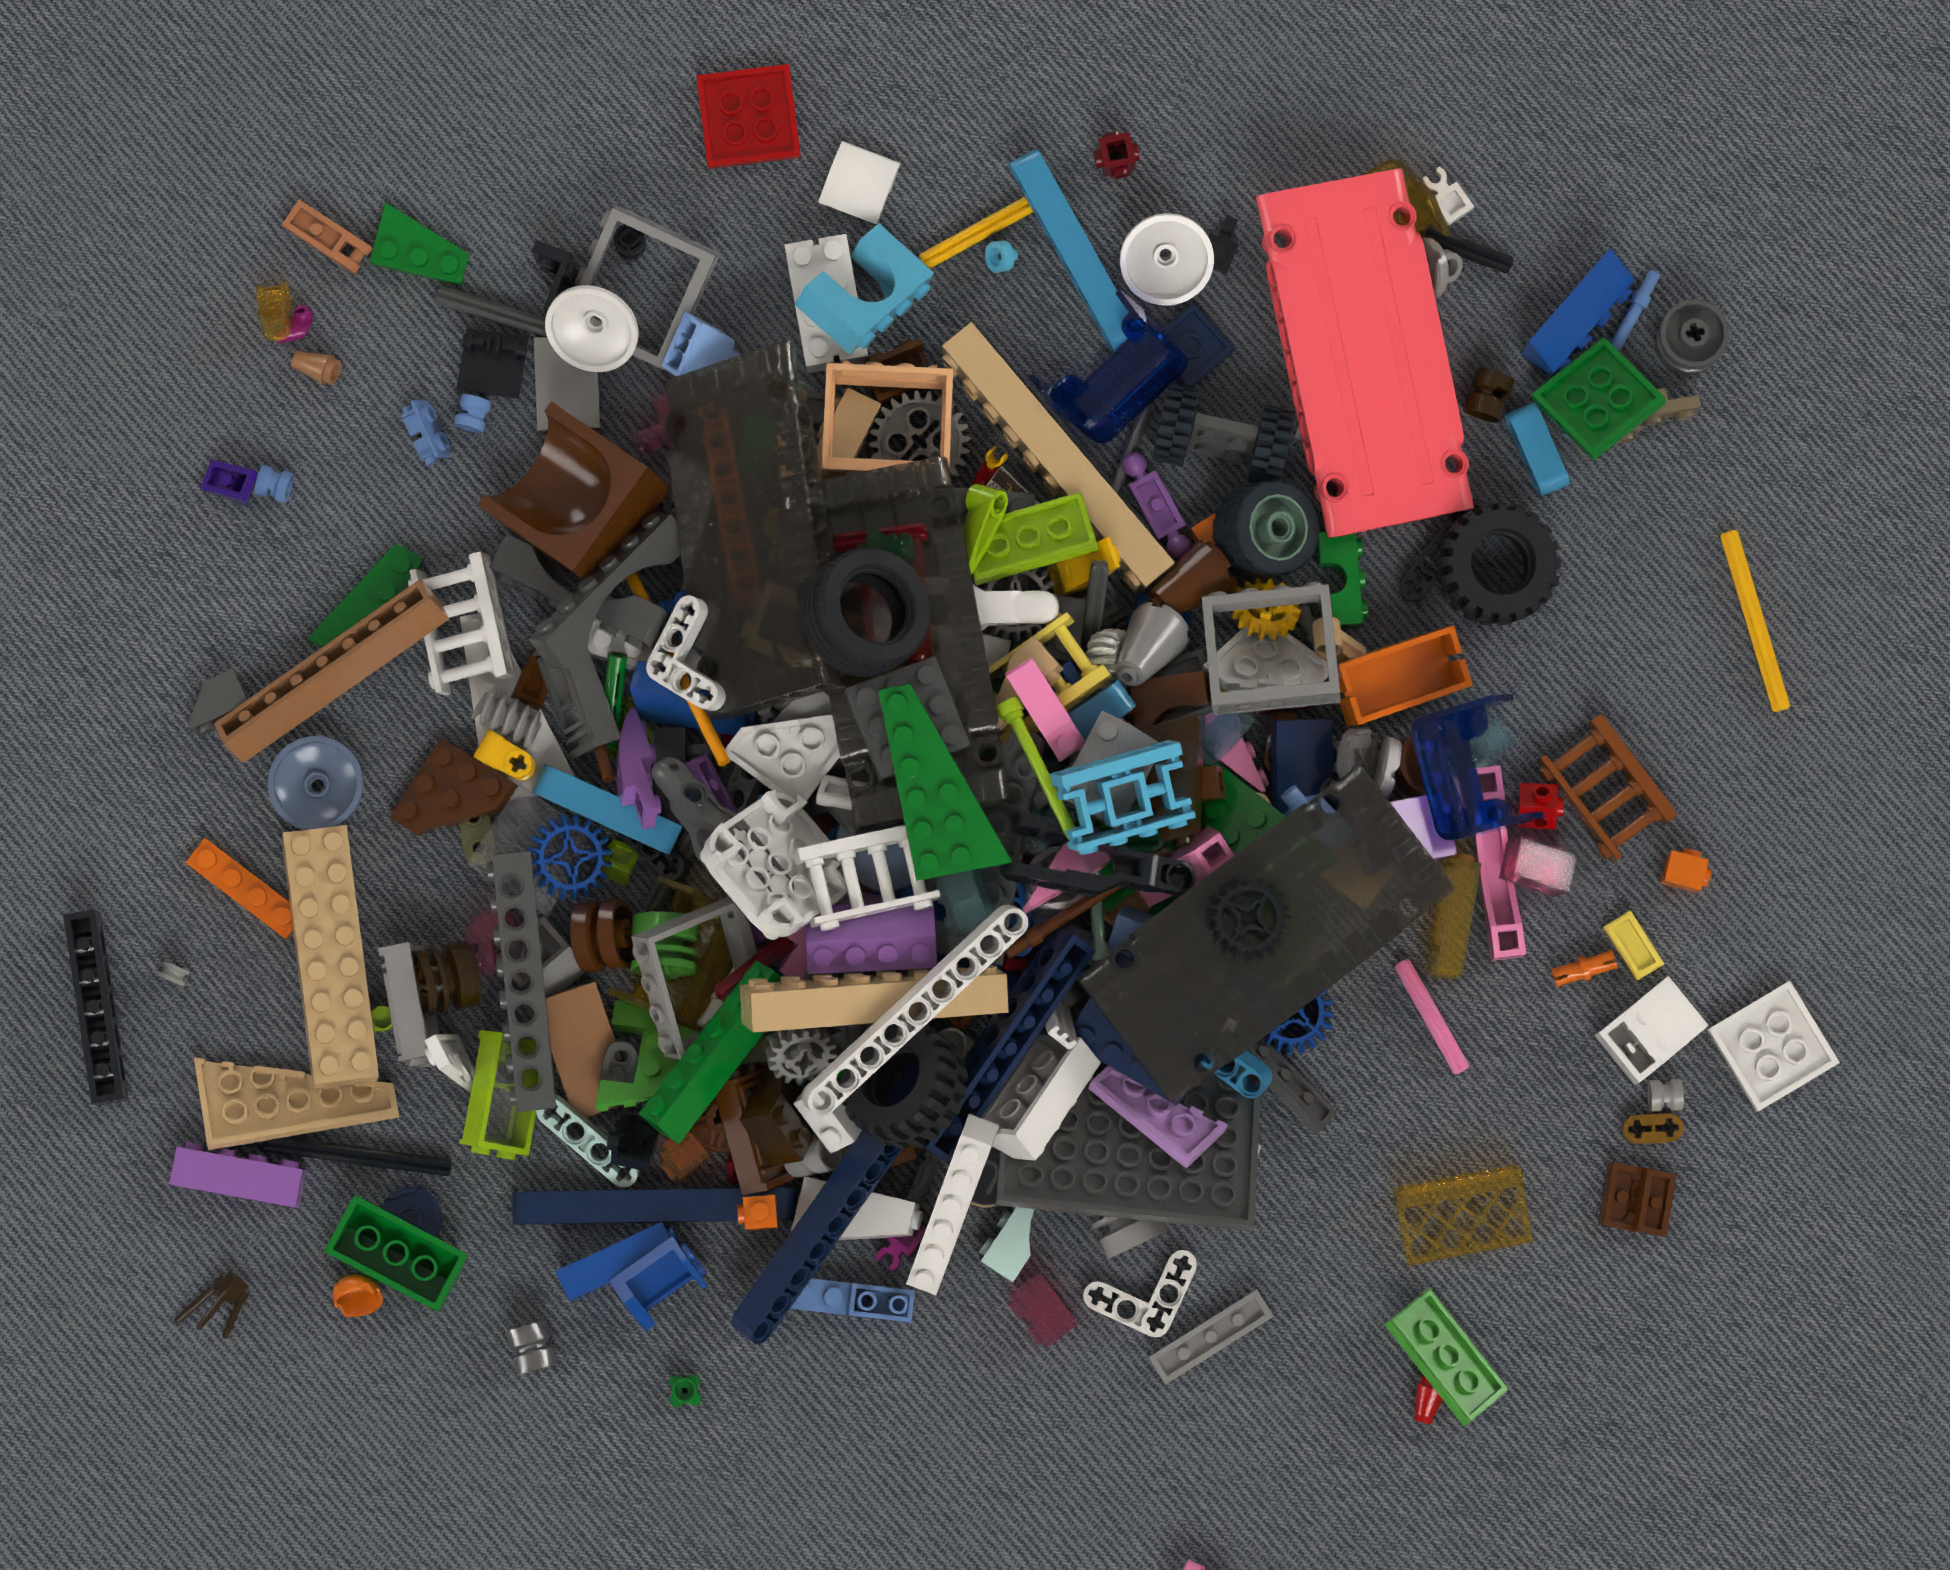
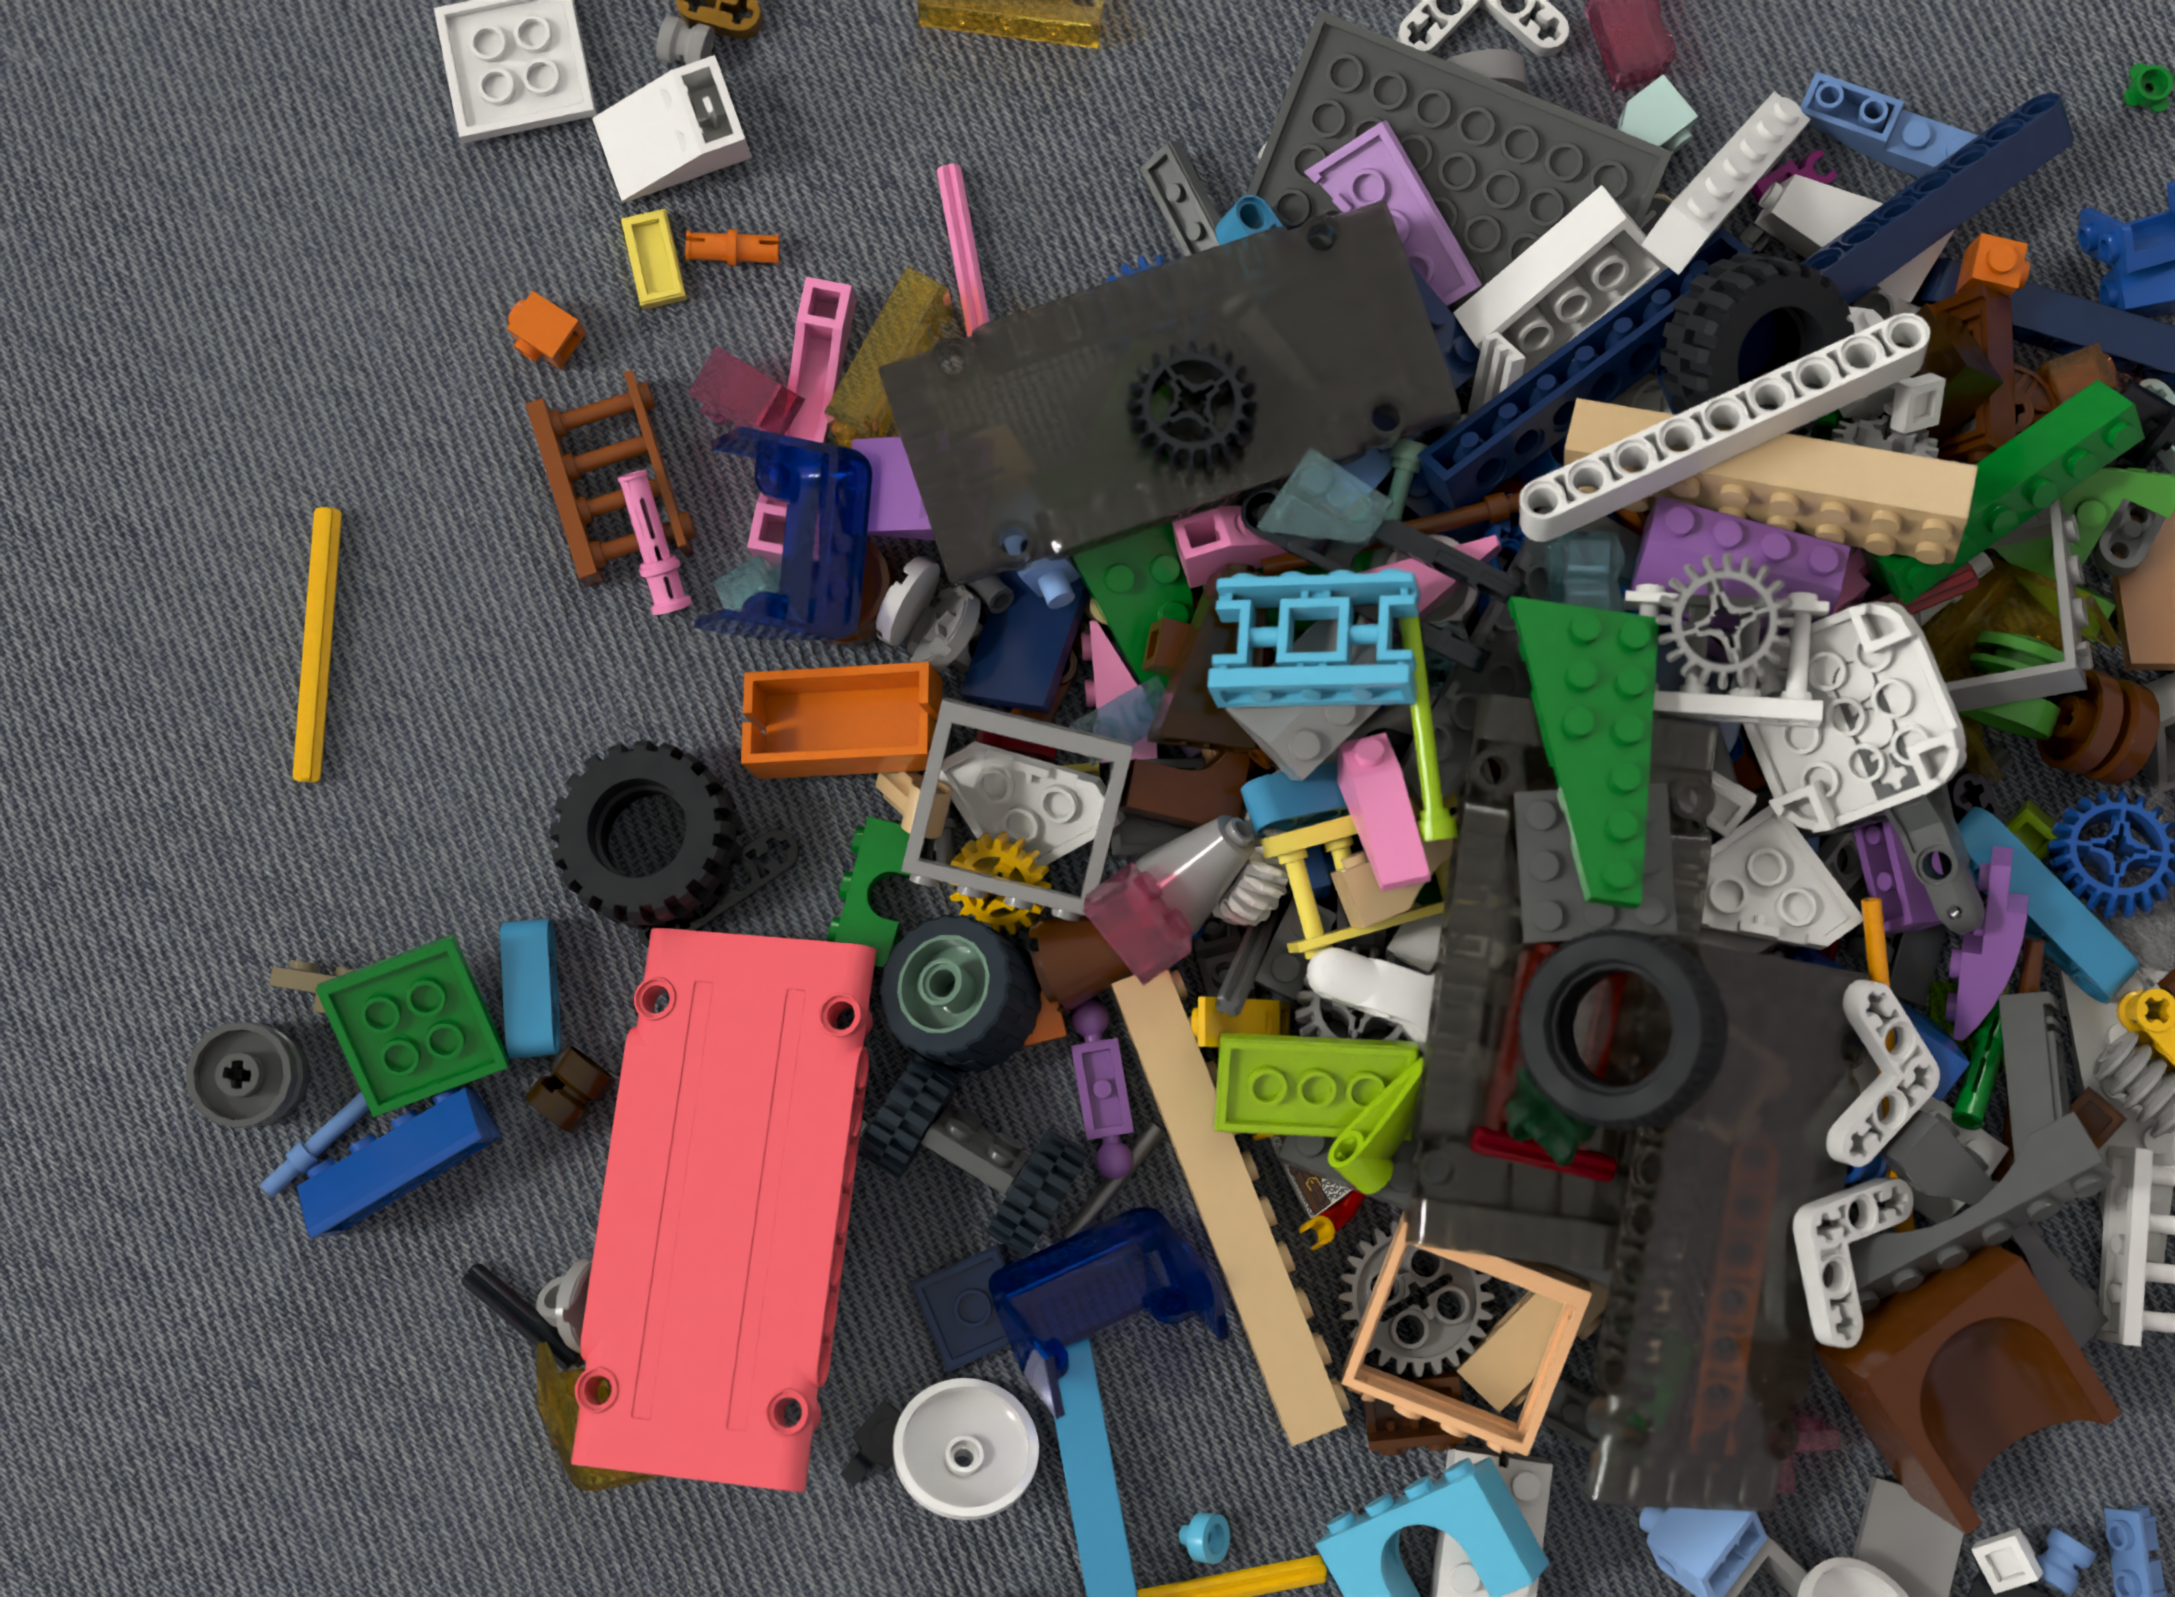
camera: 155 degrees left, 0 degrees up
(507, 403) = (2007, 1560): none -> white tile
(684, 545) = (1830, 1245): none -> white beam
(791, 1083) = (1916, 403): none -> white tile
(864, 867) = (1712, 579): none -> light grey gear
(1144, 887) = (1325, 504): none -> clear light blue wing
(1171, 599) = (1139, 922): none -> clear pink brick
(1450, 198) = (517, 1400): white plate -> none
(1540, 798) = (713, 482): red brick -> none
(1556, 738) = (658, 565): none -> bright pink pin

